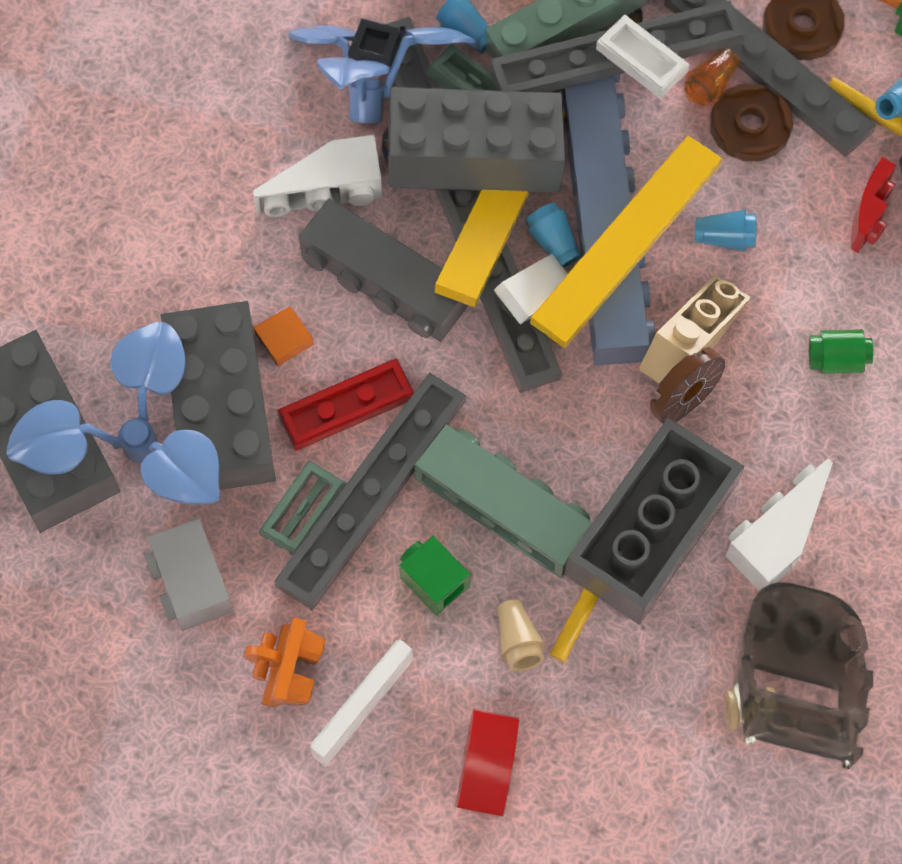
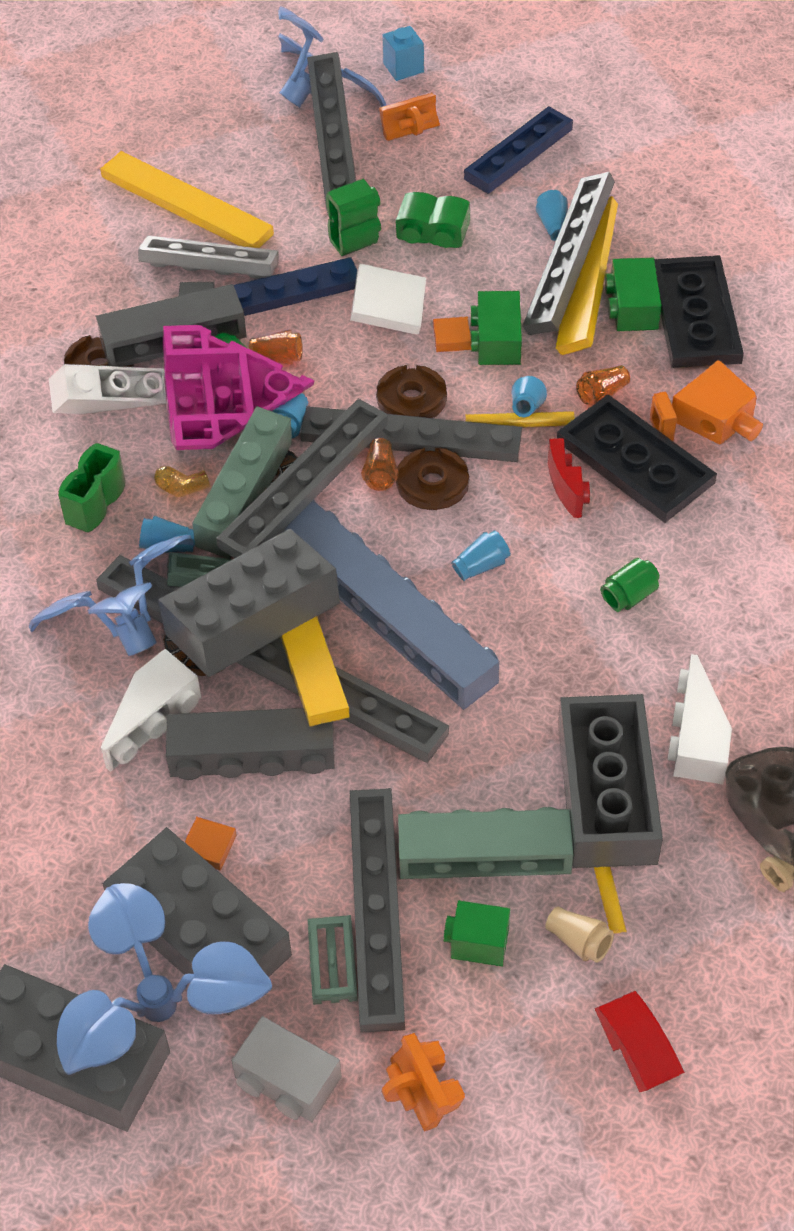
camera: 35 degrees left, 15 degrees down
(345, 404) = (300, 860): red tile -> none
(361, 702) = (506, 1068): white tile -> none
(375, 42) = (111, 580): black plate -> none
(530, 287) = (380, 679): white tile -> none
(553, 233) = (358, 637): dark azure cone -> none
(625, 241) = (422, 604): yellow tile -> none
(642, 56) = (329, 468): white tile -> none
(687, 385) = (550, 670): reddish brown tile -> none
(694, 327) = (519, 639): tan slope -> none

